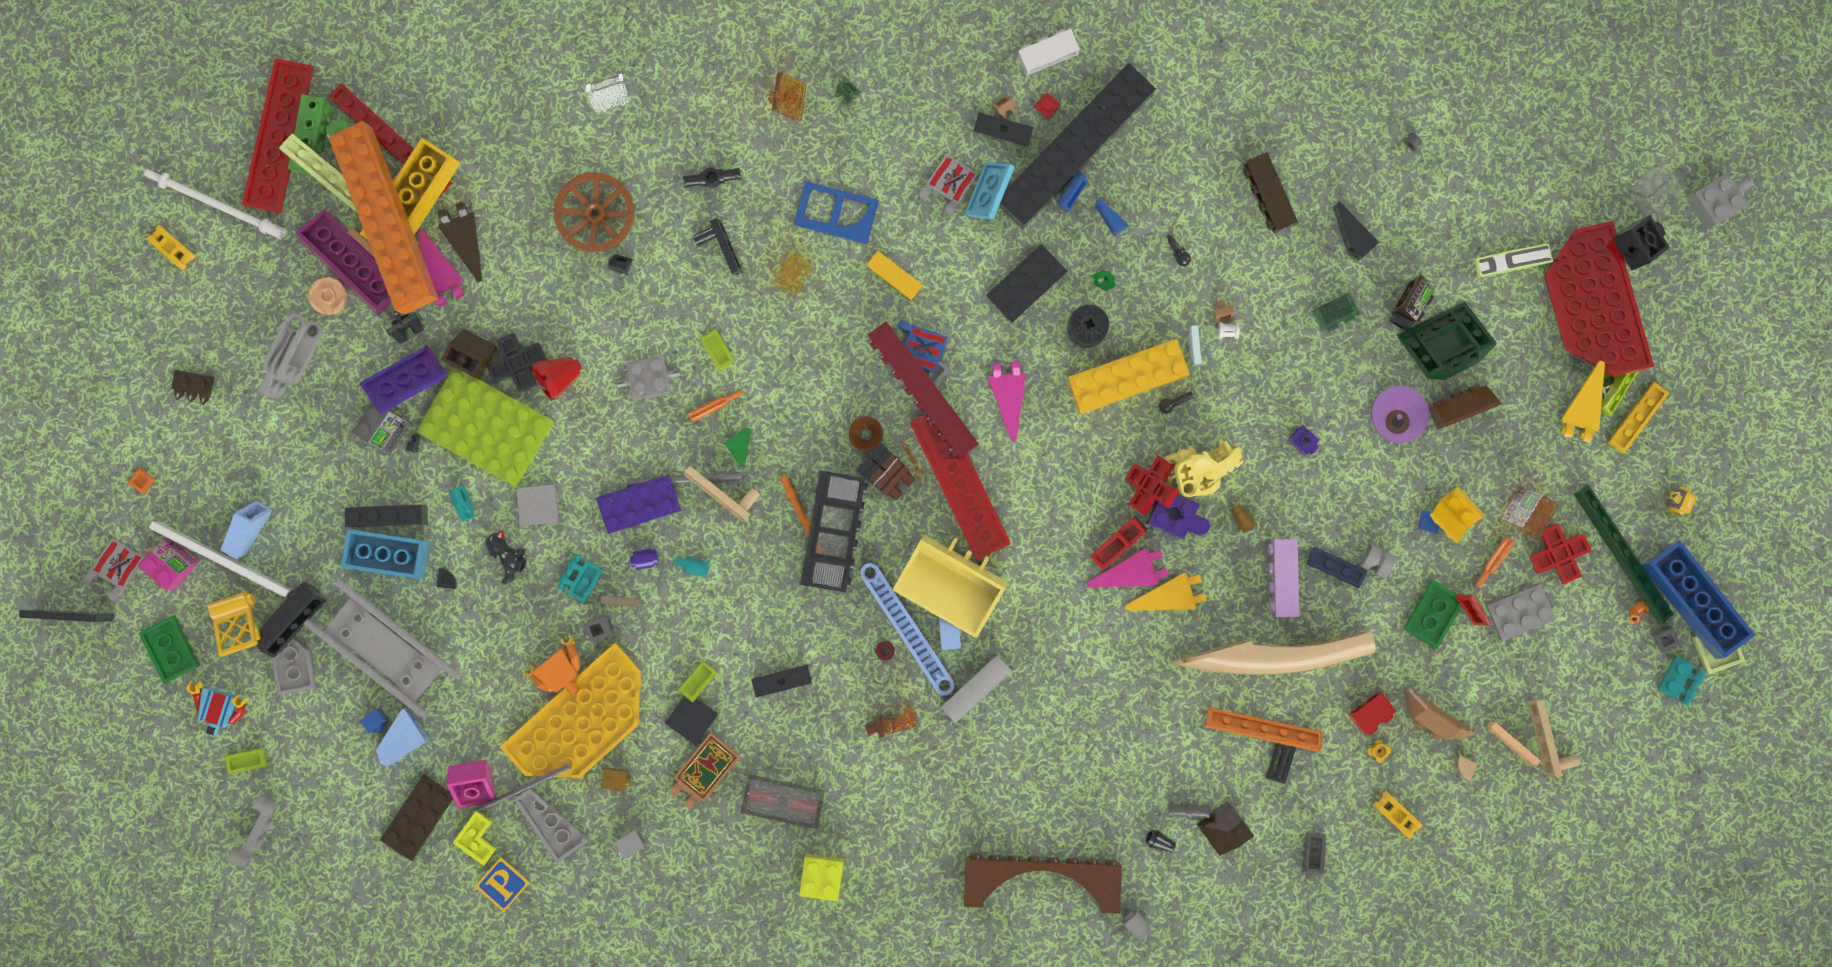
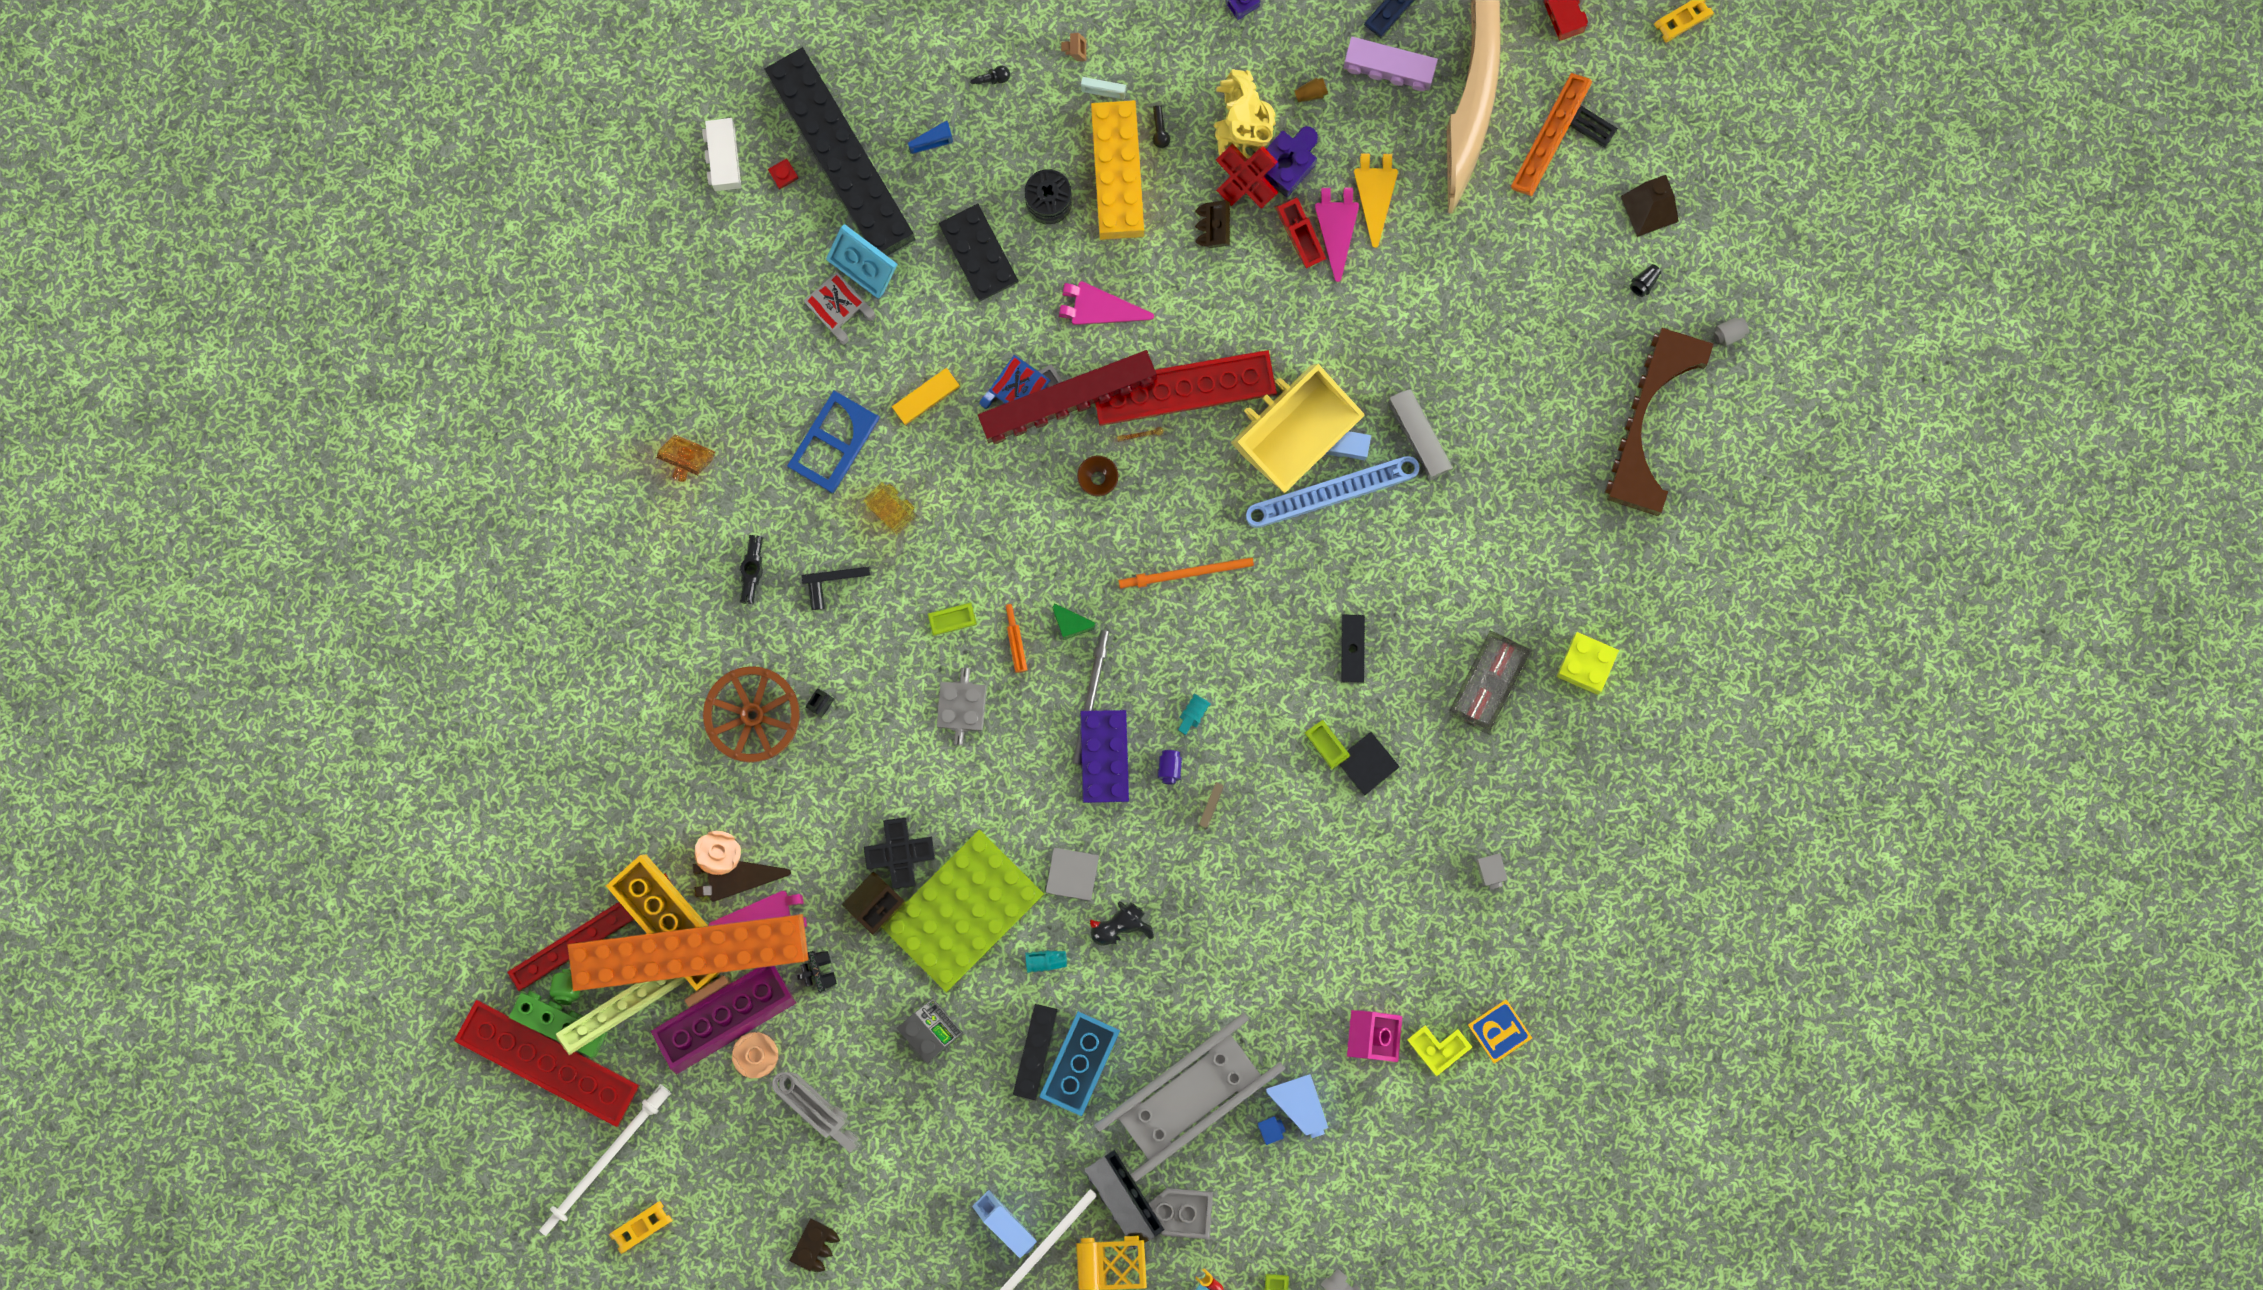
camera: 80 degrees left, 5 degrees down
(403, 379) = (882, 986): dark purple plate -> none
(413, 446) = (957, 998): black tile -> none
(417, 817) = (1396, 1111): dark brown plate -> none
(446, 579) = (1129, 1004): black tile -> none
(477, 218) = (717, 853): none -> light nougat tile
(524, 787) = (1395, 976): dark grey axle -> none
(552, 828) = (1451, 956): light grey wing -> none
(556, 375) = (929, 810): red cone -> none
(558, 670) = (1271, 898): orange torso -> none
(581, 725) = (1335, 890): yellow plate -> none
(584, 582) = (1176, 842): teal plate -> none
(590, 629) = (1236, 831): dark grey brick -> none
(608, 93) = (618, 660): clear brick -> none
(616, 779) = (1414, 867): pearl gold brick -> none
(704, 770) = (1430, 764): tile -> none
(738, 510) = (1143, 644): tan piece -> none
(833, 531) = (1199, 542): black window -> none
(848, 90) = (697, 388): clear green tile -> none
(880, 655) = (1350, 517): dark red plate -> none
(892, 473) = (1151, 462): reddish brown hips -> none
(892, 723) = (1433, 542): clear orange hips -> none
(991, 127) = (802, 217): black tile -> none
(1003, 105) = (768, 220): medium nougat tile -> none
(1072, 191) = (890, 172): blue tile -> none
(1104, 280) = (1000, 165): green plant -> none
(1105, 470) = (1215, 224): none -> dark brown plate
(1189, 810) = (1620, 239): dark grey pin -> none
(1228, 330) = (1096, 47): white bush -> none
(1306, 861) = (1708, 129): dark grey slope -> none
(1378, 744) = (1608, 12): yellow plate -> none

